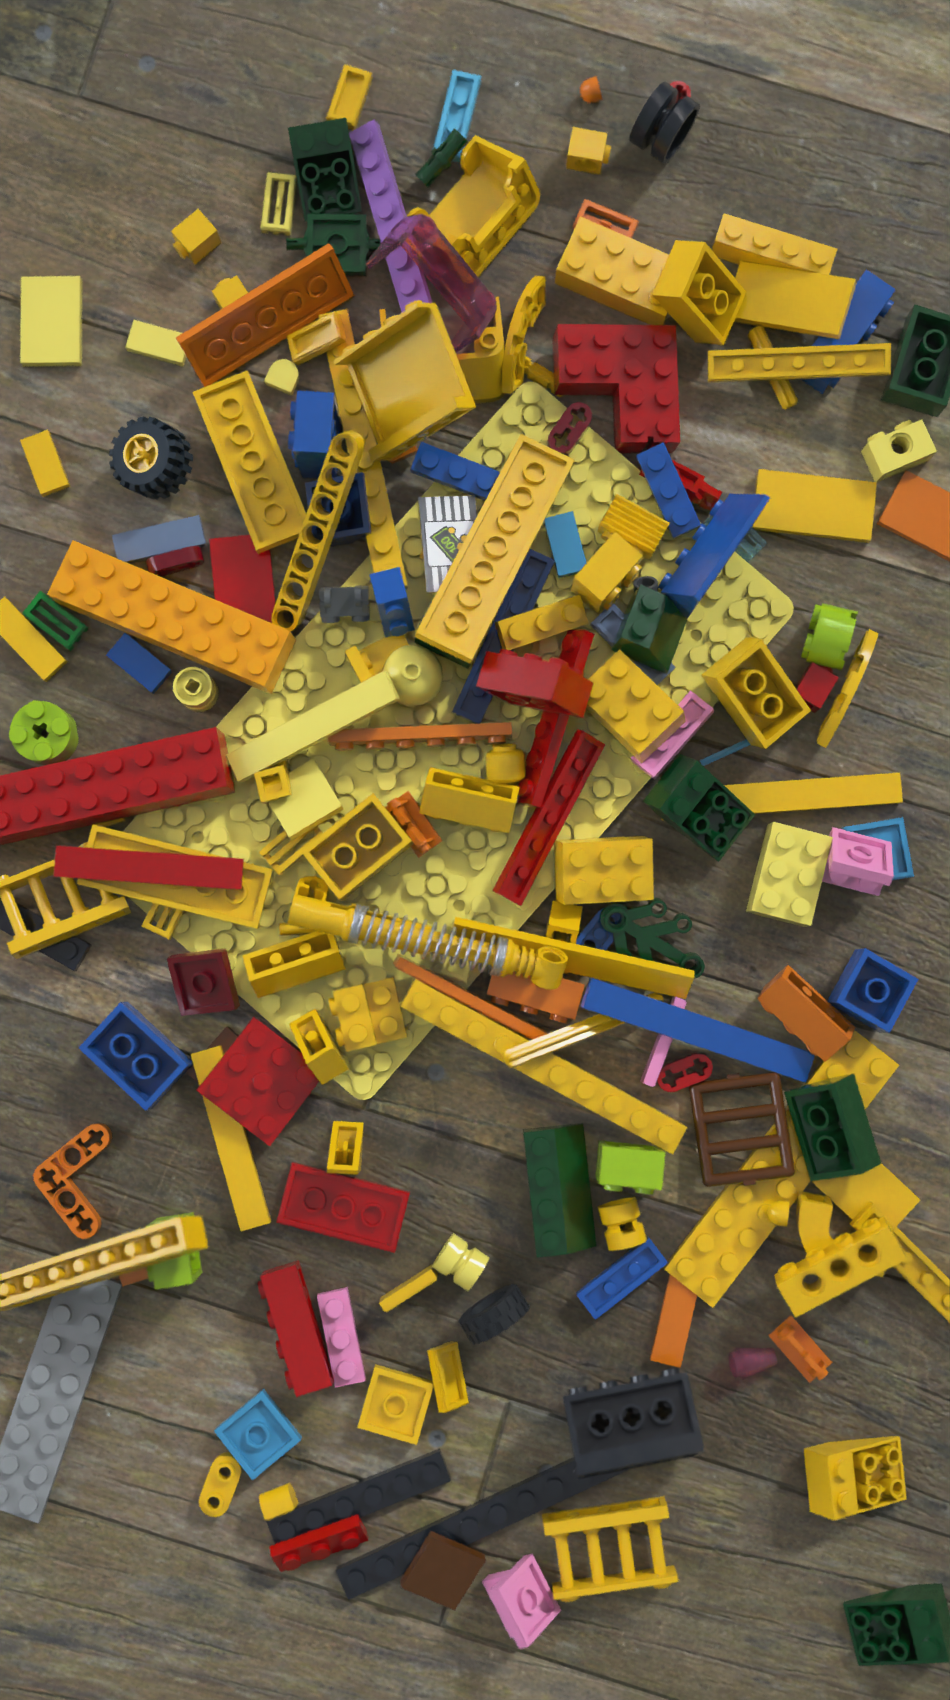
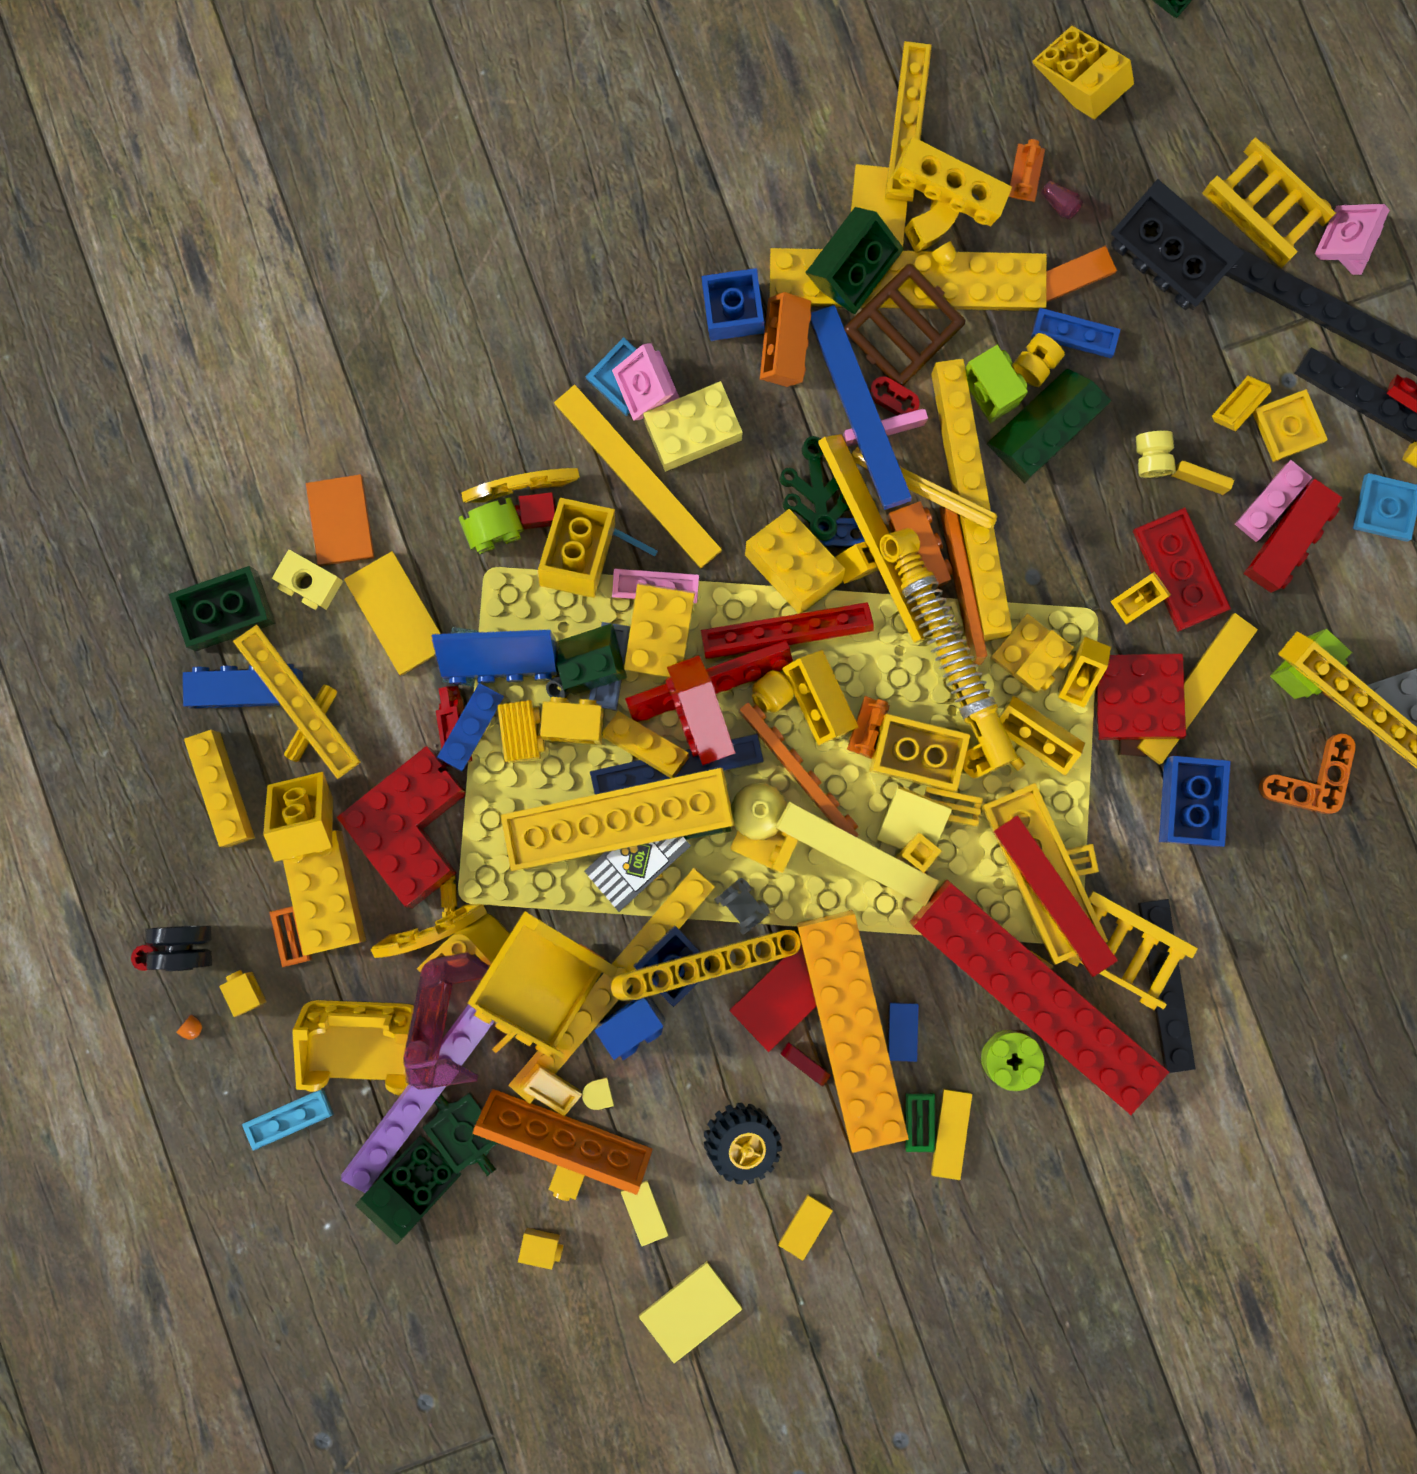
camera: 130 degrees left, 0 degrees up
(159, 539) = (797, 1090): sand blue tile -> none
(195, 689) = (892, 970): light yellow wheel -> none
(203, 982) = (1103, 794): dark red plate -> none
(252, 461) = (684, 1064): yellow plate -> none
(277, 227) = (484, 1192): light yellow tile -> none
(350, 95) = (333, 1216): yellow tile -> none
(392, 602) = (717, 866): blue brick -> none
(441, 158) = (333, 1103): dark green pin -> none
(442, 1570) = (1377, 305): reddish brown tile -> none
(454, 471) = (576, 899): blue plate -> none
(494, 1314) = (1174, 401): black tyre -> none
(563, 426) = (478, 830): dark red beam -> none
(565, 544) = (570, 773): dark azure tile -> none
(699, 806) = (693, 528): dark green slope -> none
(794, 299) = (247, 744): yellow tile -> none

